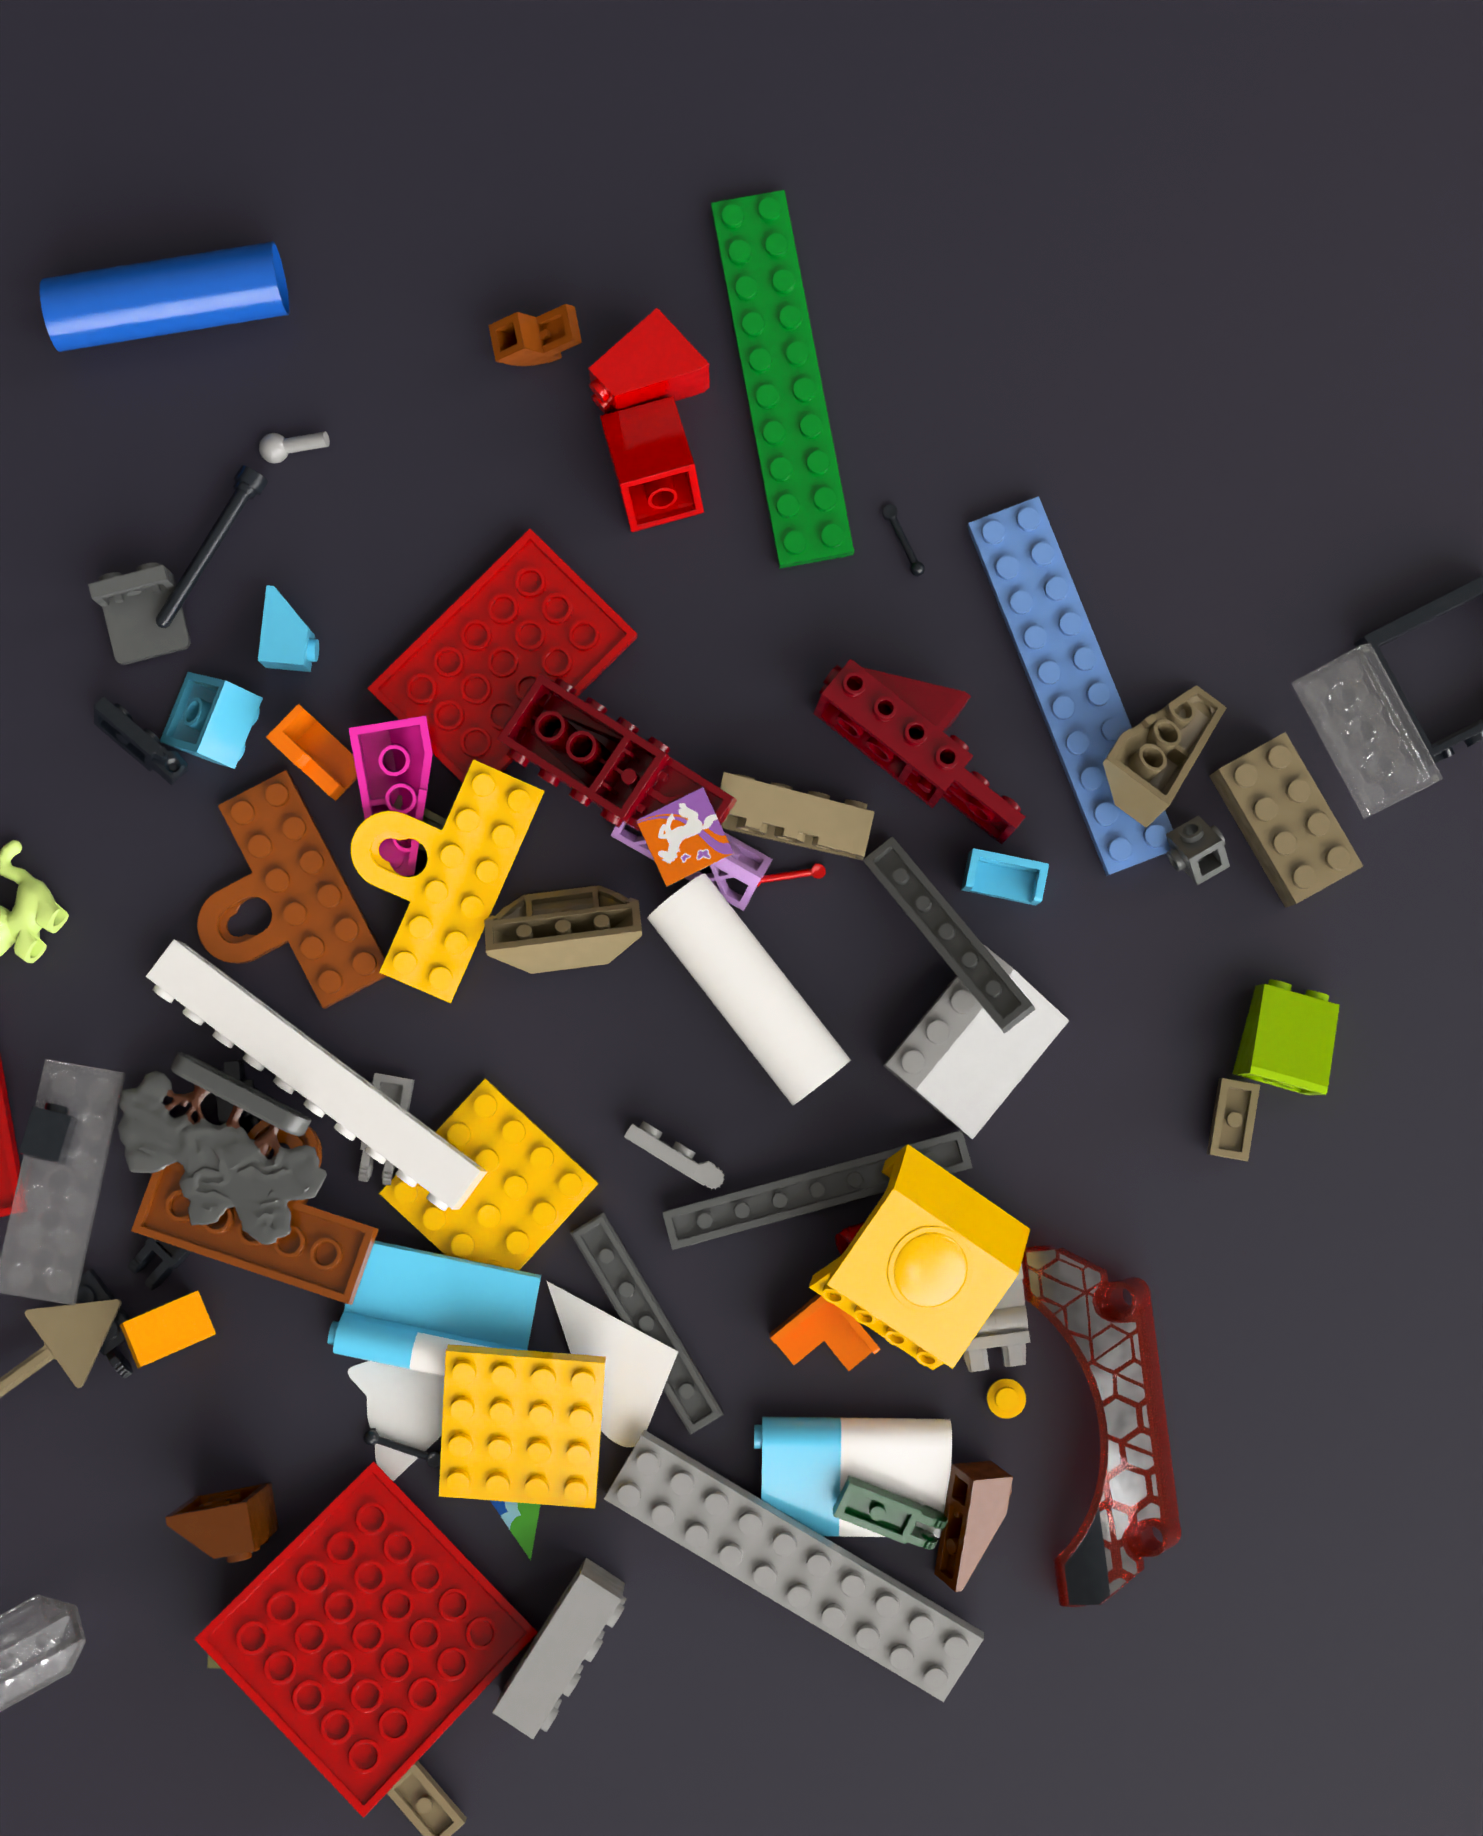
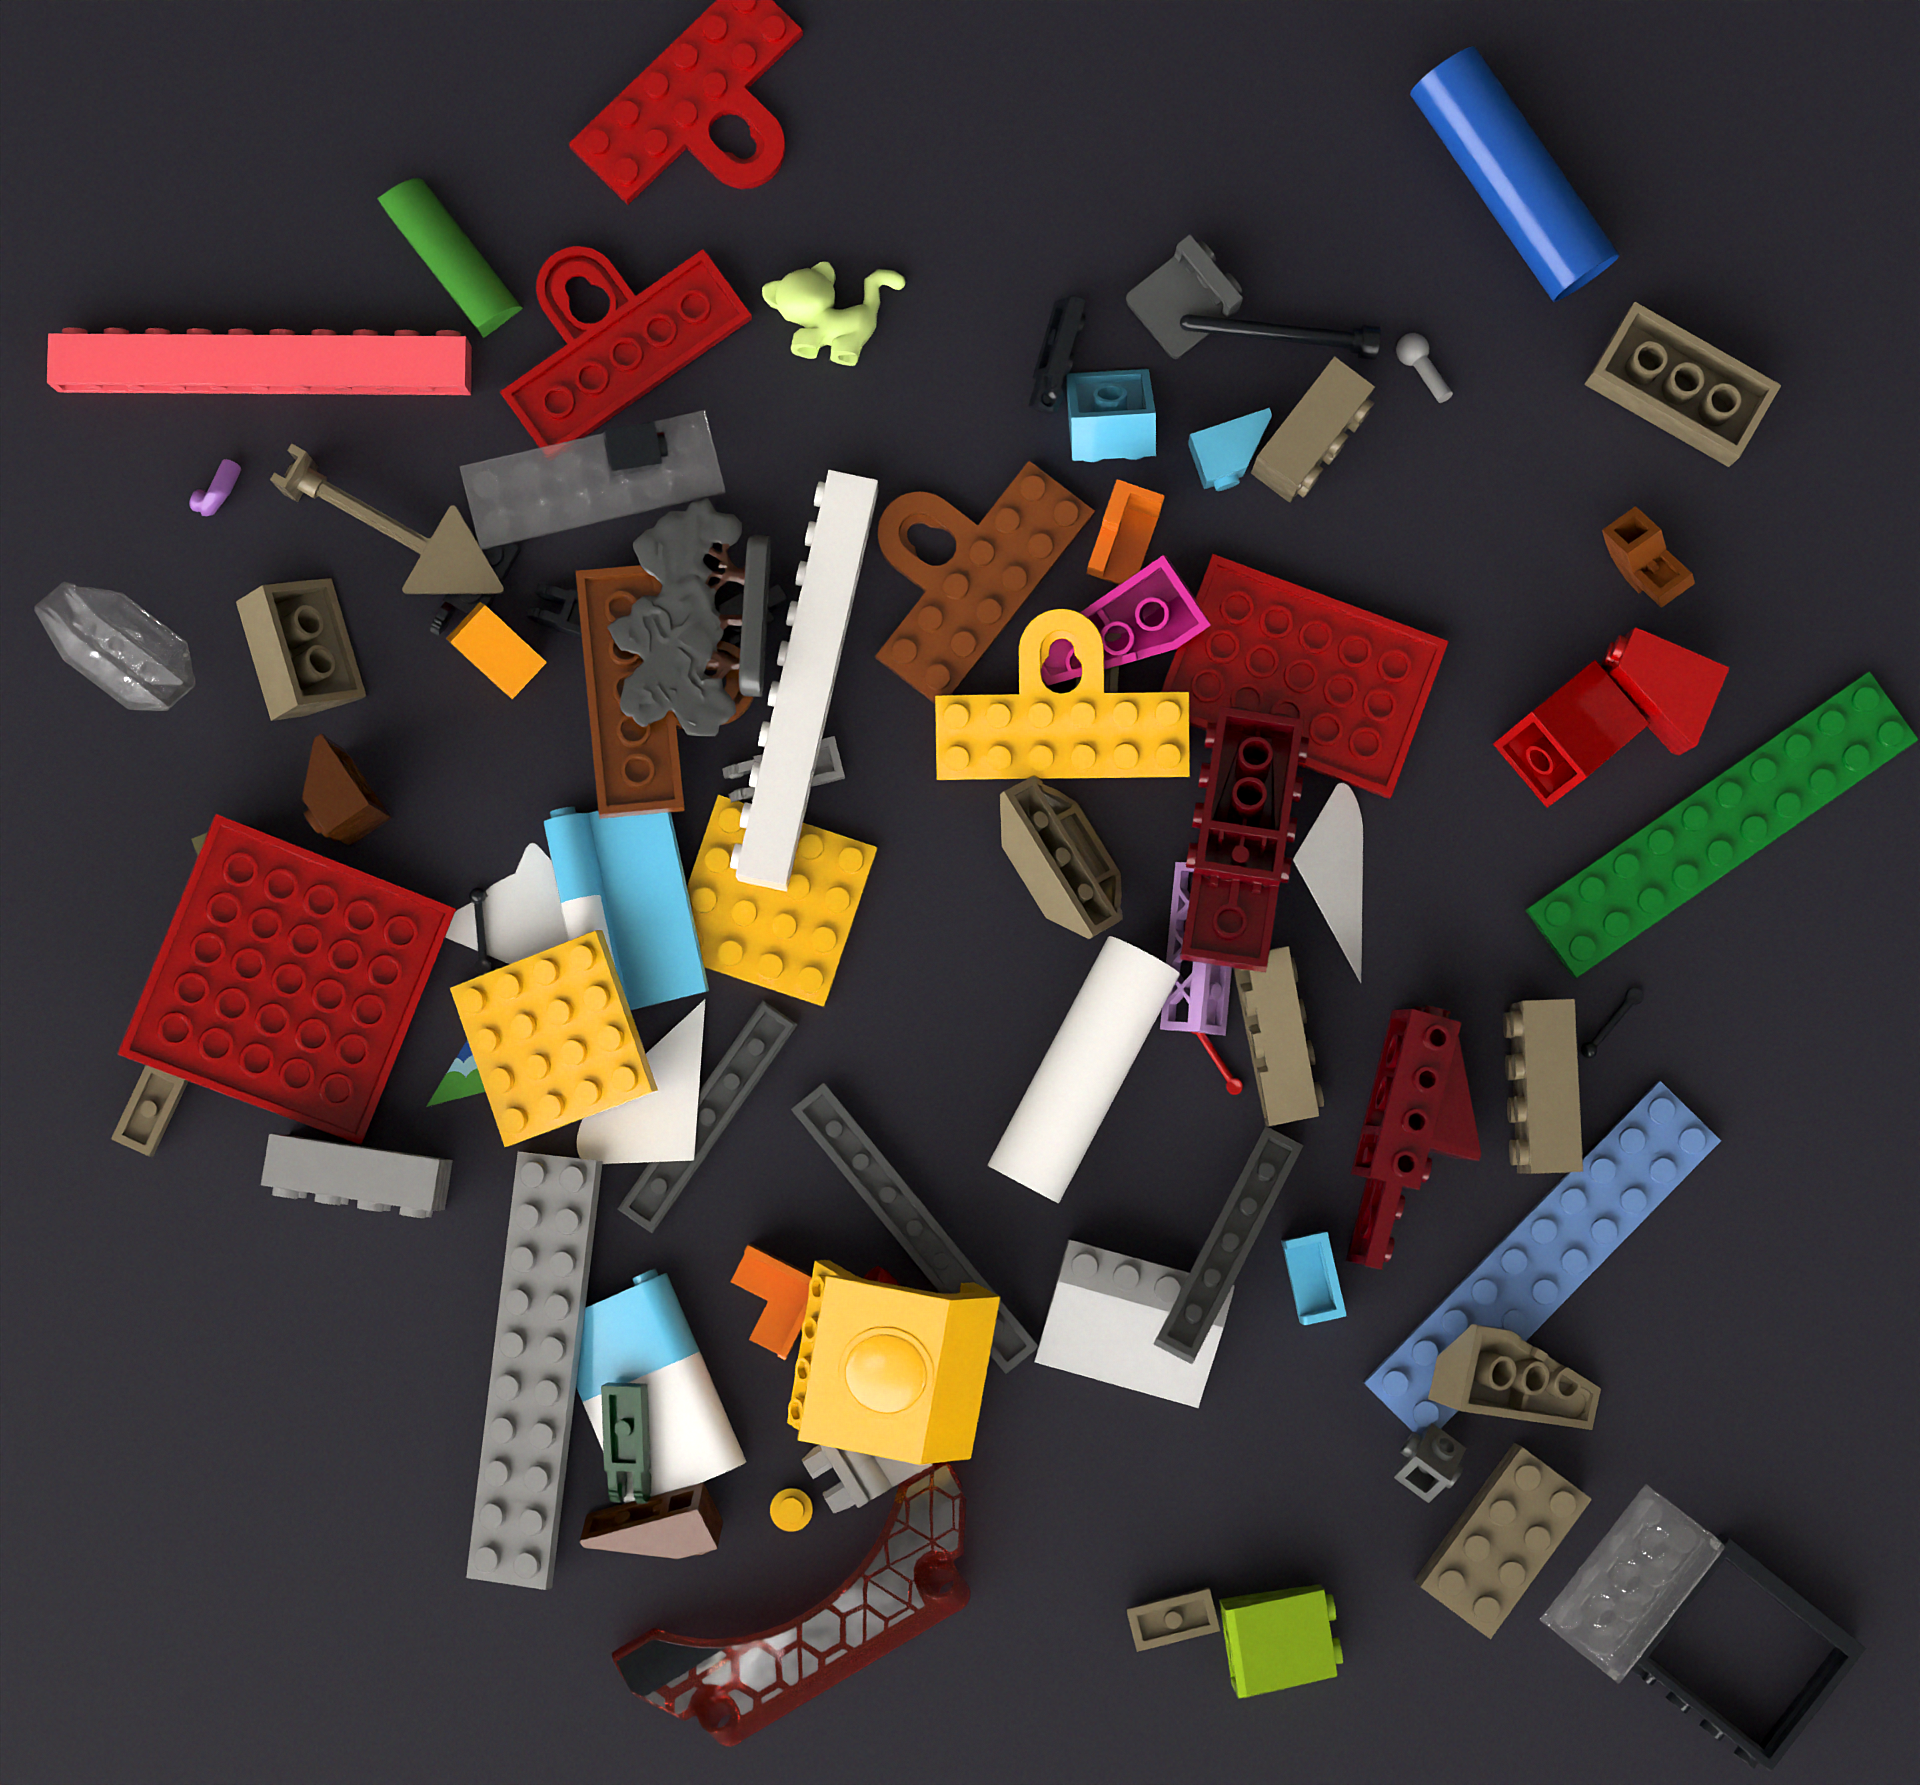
camera: 70 degrees right, 0 degrees up
(87, 1498) = (300, 648): none -> dark tan slope
(303, 557) = (1314, 431): none -> dark tan brick
(406, 241) = (1682, 384): none -> dark tan brick
(675, 708) = (1334, 869): none -> white sticker
(677, 1156) = (885, 1073): light grey hinge -> none
(684, 836) = (1205, 937): sticker -> none
(933, 617) = (1544, 1086): none -> dark tan brick

